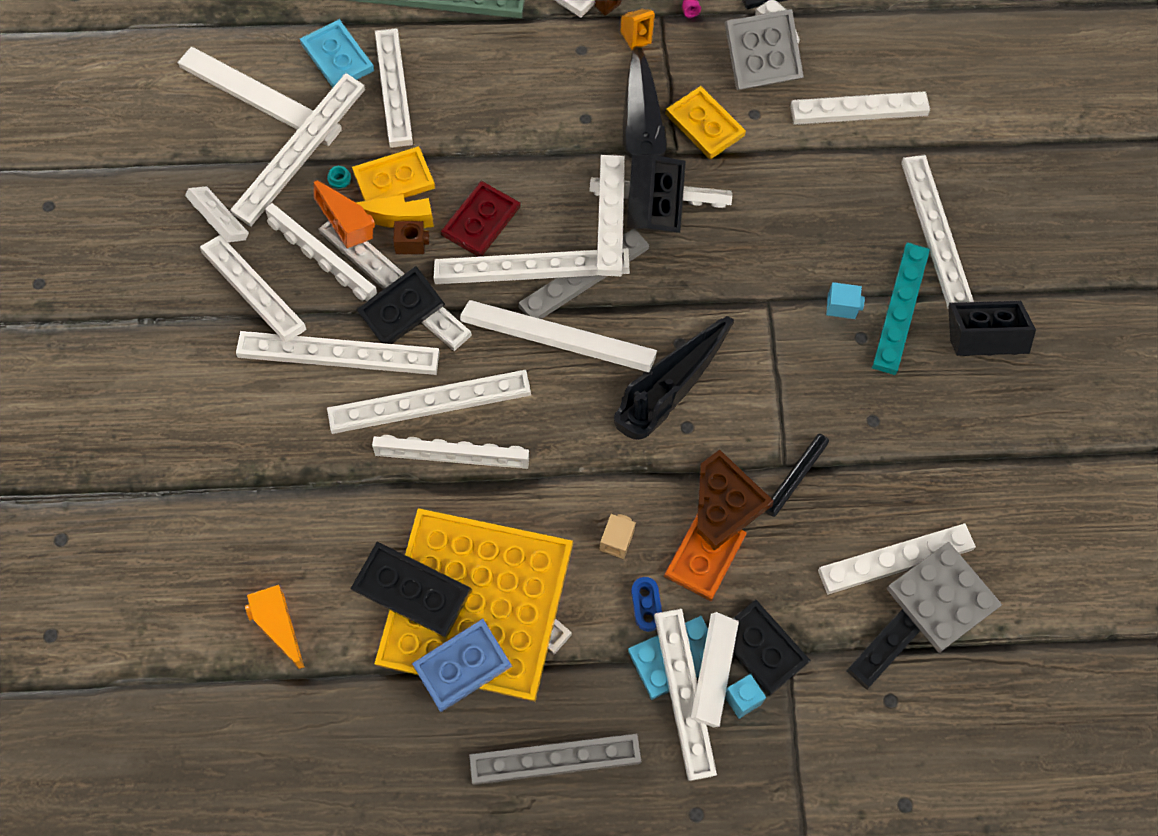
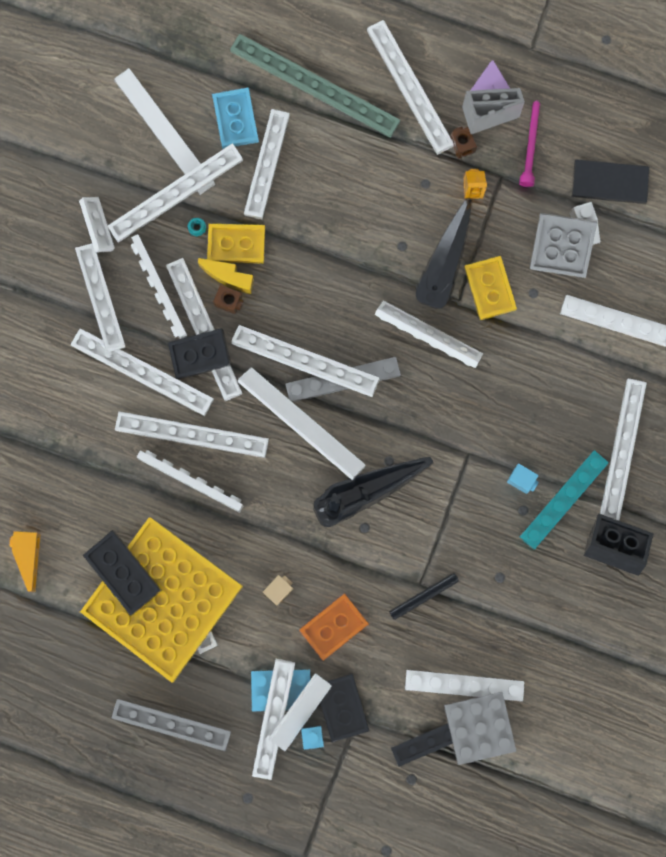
camera: 25 degrees right, 15 degrees up
(345, 215) = (187, 267): orange slope -> none
(462, 665) = (134, 639): medium blue tile -> none
(480, 219) = (287, 302): dark red tile -> none
(610, 216) = (378, 345): white plate -> none
(645, 604) = (276, 646): blue plate -> none
(656, 193) = (420, 340): black slope -> none
(726, 500) = (364, 596): reddish brown plate -> none

